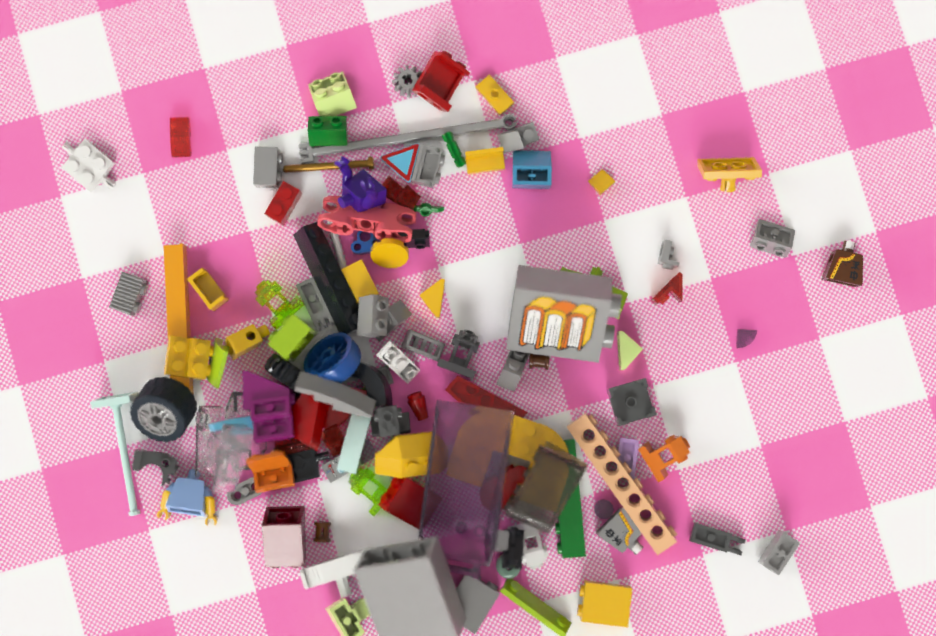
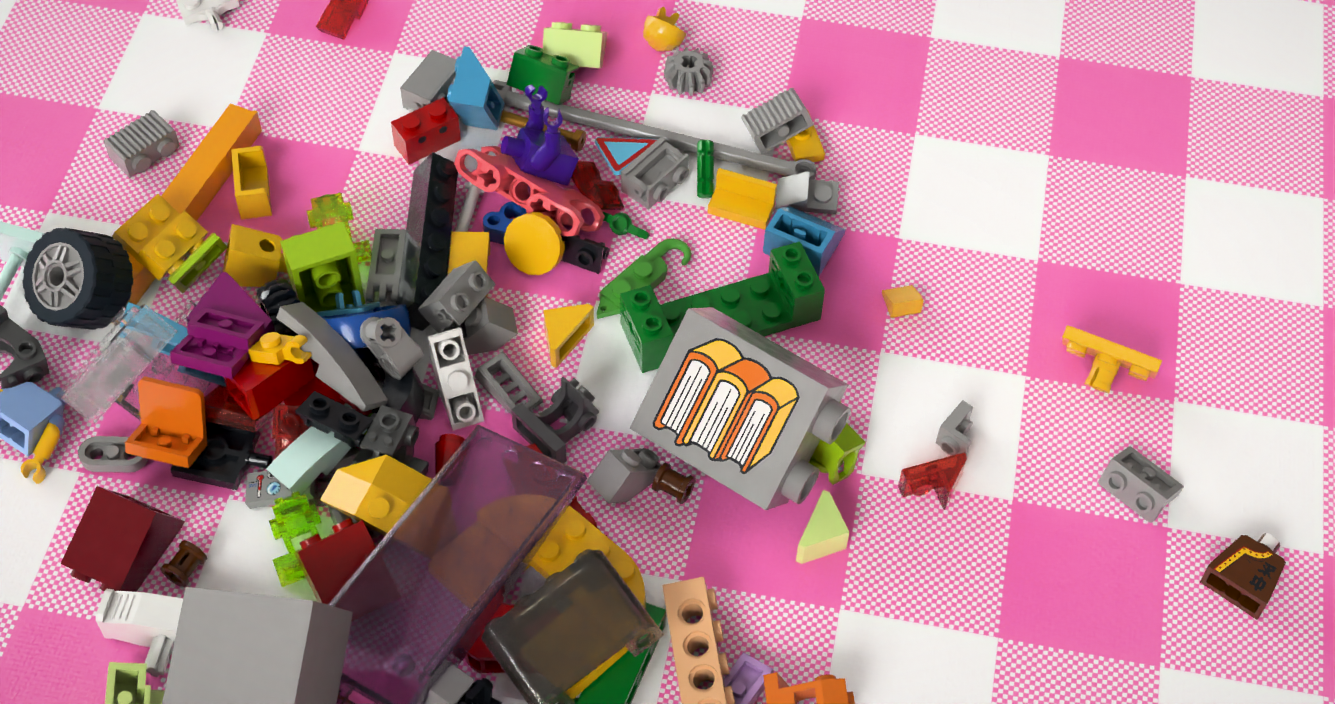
camera: 25 degrees right, 30 degrees down
(302, 169) = (474, 94): none -> dark azure slope
(304, 406) = (276, 348): none -> yellow plate
(317, 348) = (349, 309): none -> medium azure piece
(358, 429) = (335, 417): none -> black hinge
(360, 372) = (395, 349): none -> light grey piece
(376, 57) = (661, 31): none -> yellow piece
(440, 80) = (734, 82): red panel -> none
(454, 239) = (642, 272): none -> bright green plate
(478, 96) = (777, 120): none -> light grey brick
(511, 242) = (765, 303): none -> green plate
(631, 402) = (789, 609): dark grey panel -> none
(745, 337) = (1031, 604): clear purple tile -> none

